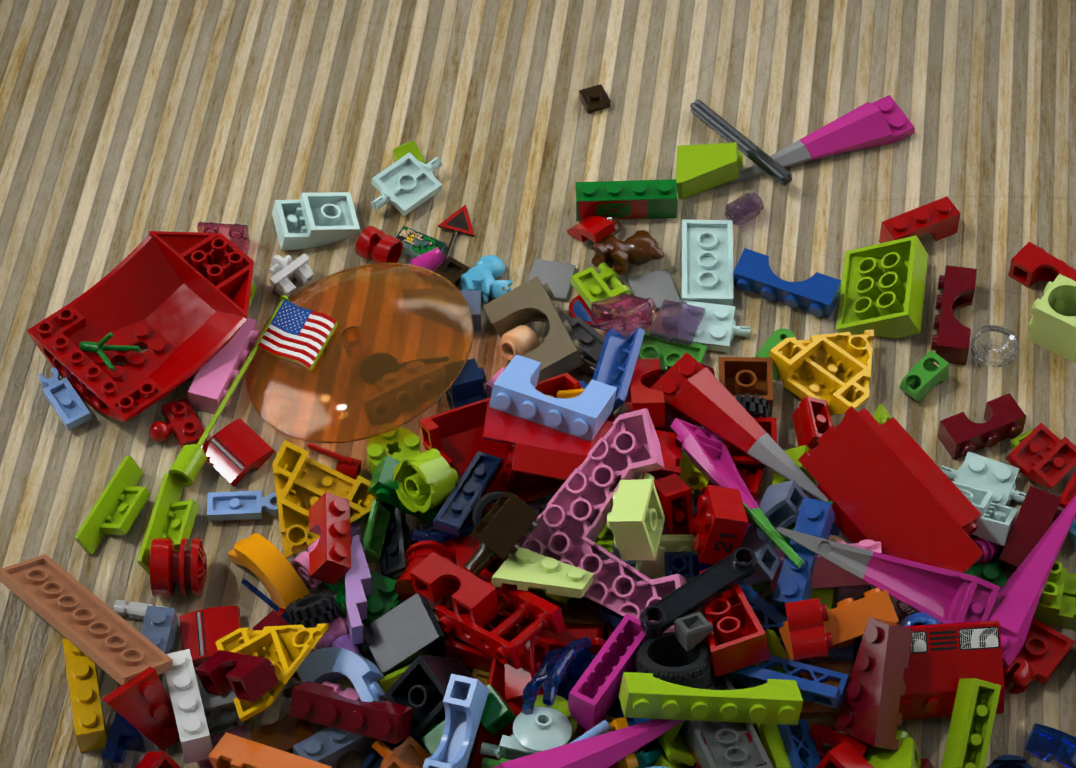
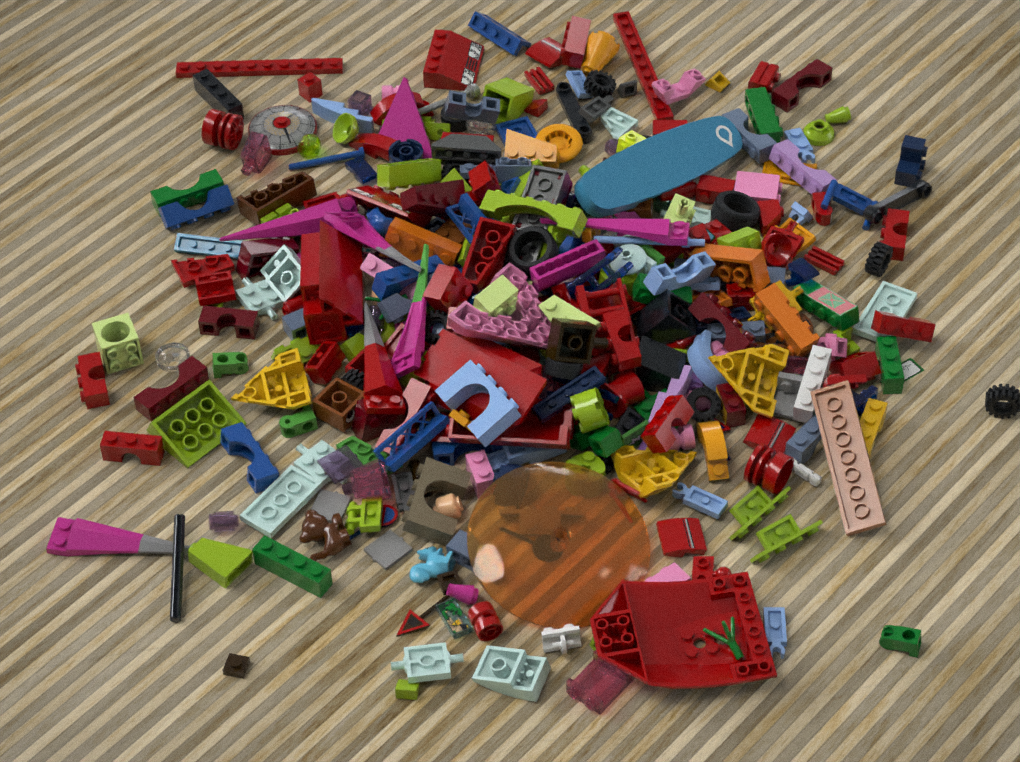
camera: 145 degrees left, 5 degrees down
(244, 673) = (778, 385): dark red arch -> none
(289, 335) = (602, 575): flag -> none
(592, 228) = (335, 555): red slope -> none
(691, 630) = (512, 245): dark grey slope -> none
(698, 591) = (494, 262): black piece -> none
(807, 629) = (446, 235): red brick -> none

